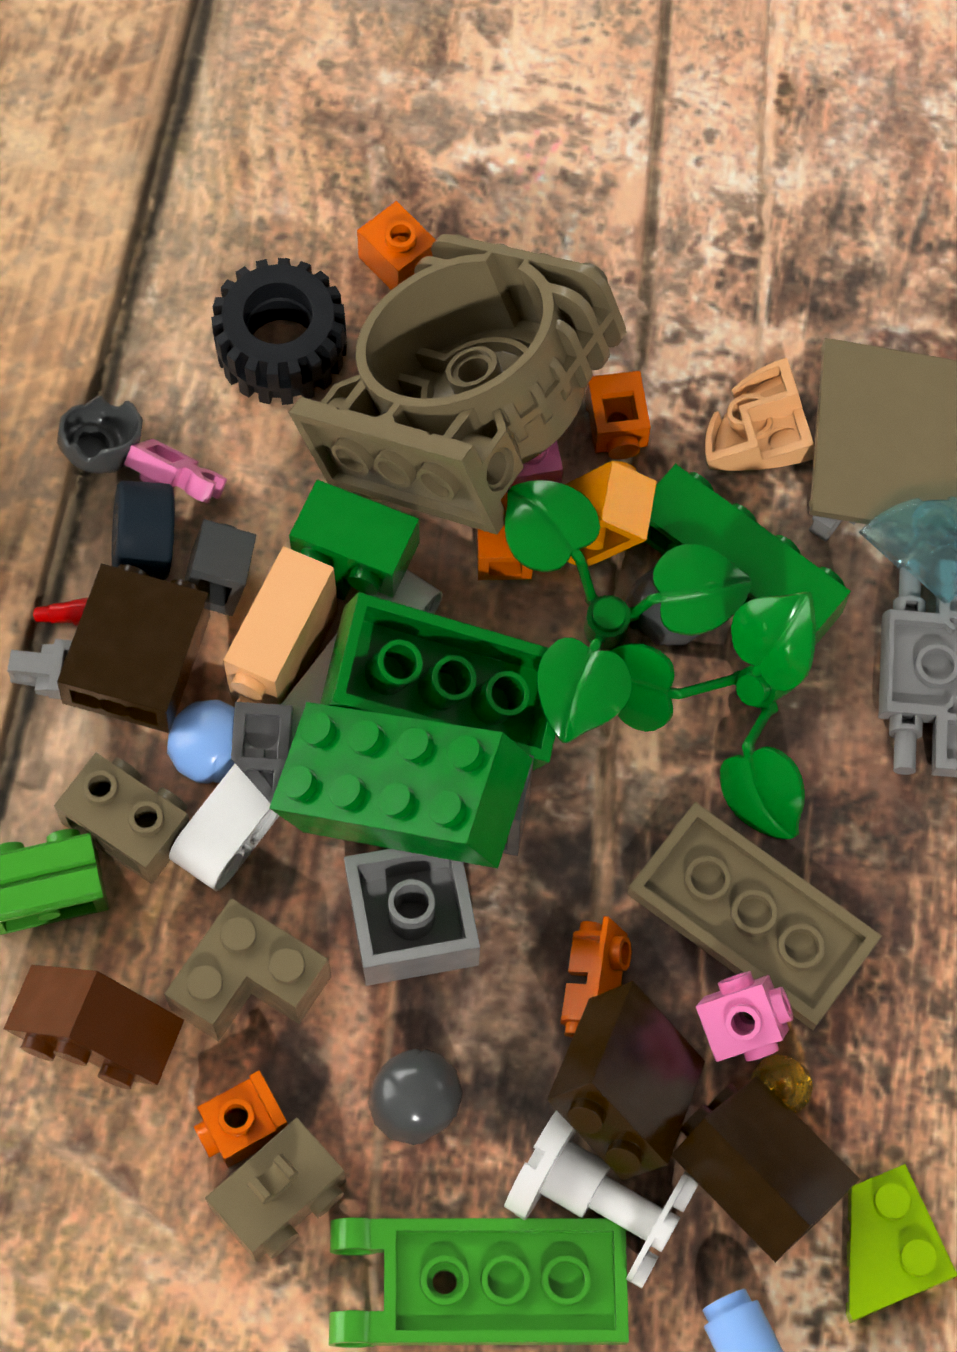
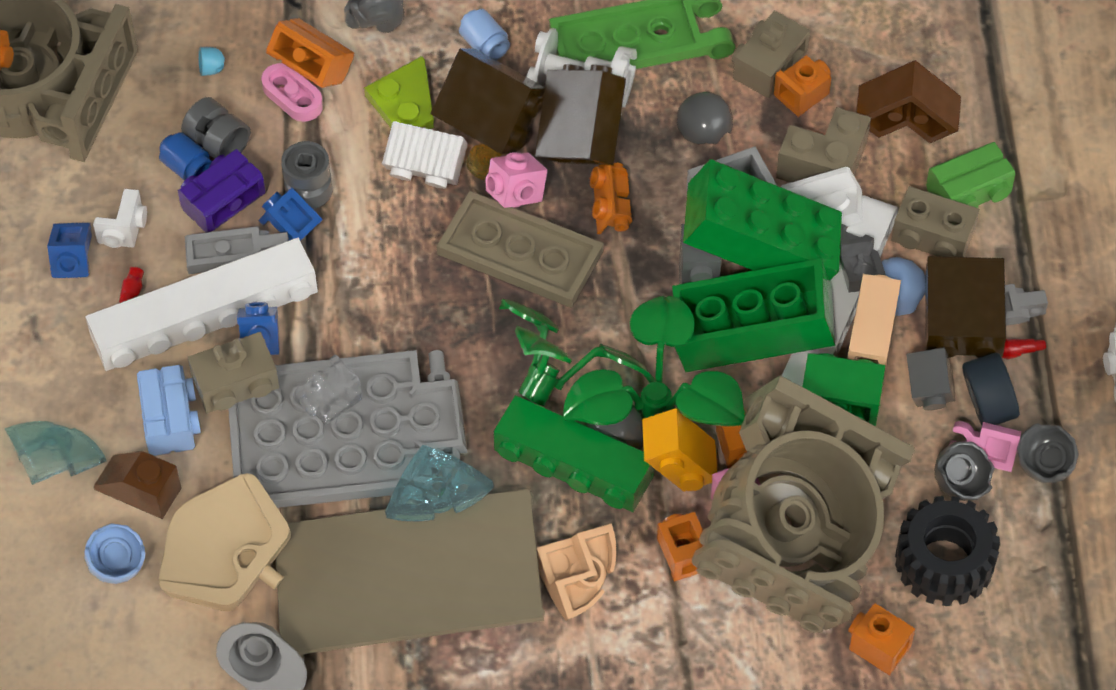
camera: 170 degrees right, 10 degrees down
(220, 430) = (964, 471): none -> dark grey hair
(284, 867) = (834, 189): none -> white bracket
(878, 1106) = (424, 154): none -> white brick

